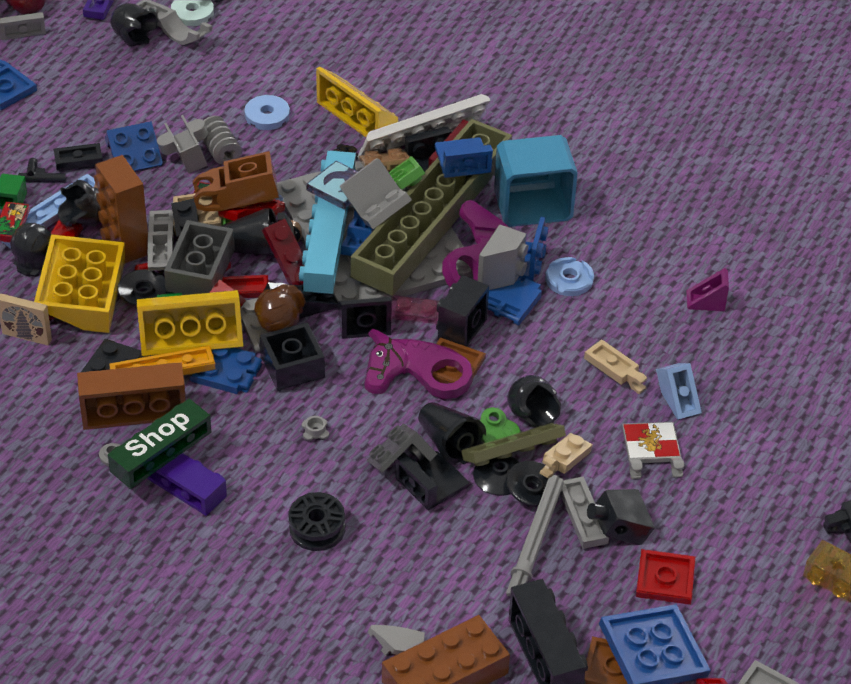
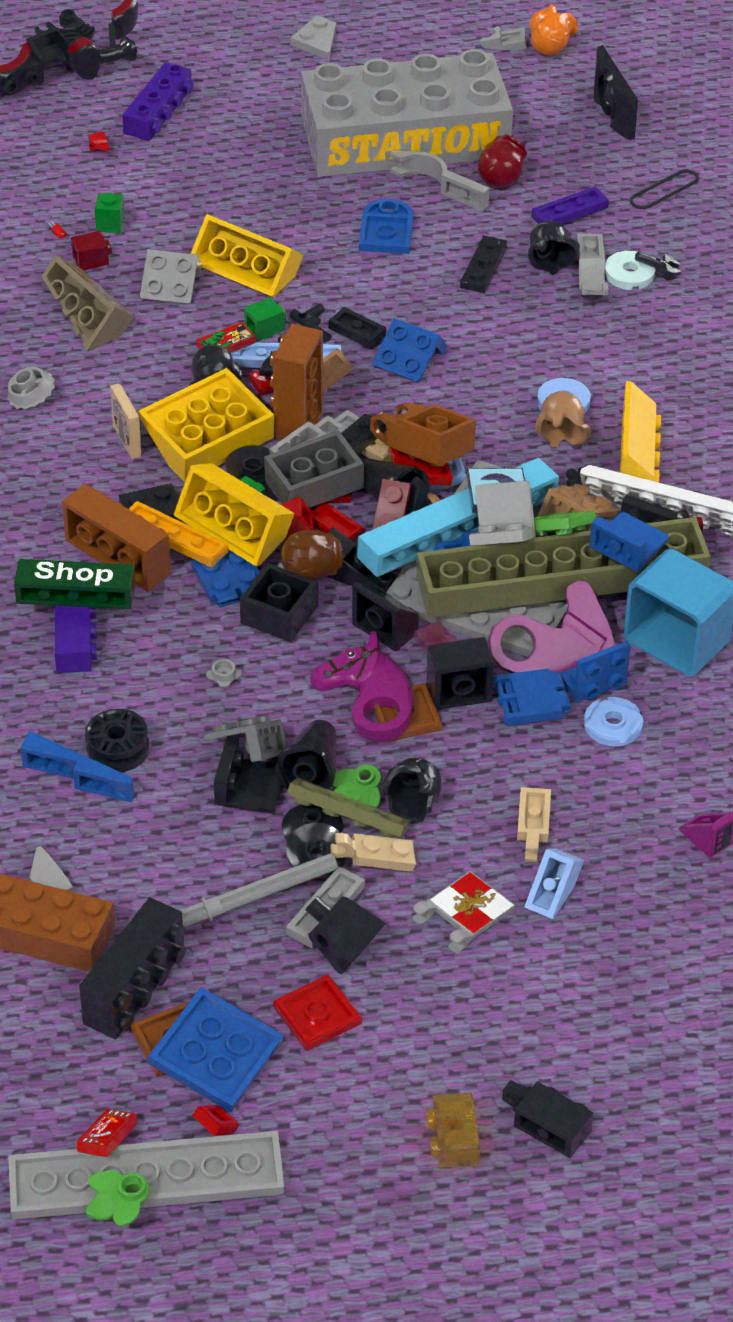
camera: 50 degrees right, 0 degrees up
(97, 64) = (483, 264): none -> black plate
(186, 144) = (444, 376): light grey piece -> none
(221, 140) = (482, 391): light grey piece -> none
(295, 120) = (562, 420): none -> medium nougat hair
(330, 557) = (88, 774): none -> blue slope
(503, 258) = (544, 652): light grey slope -> none

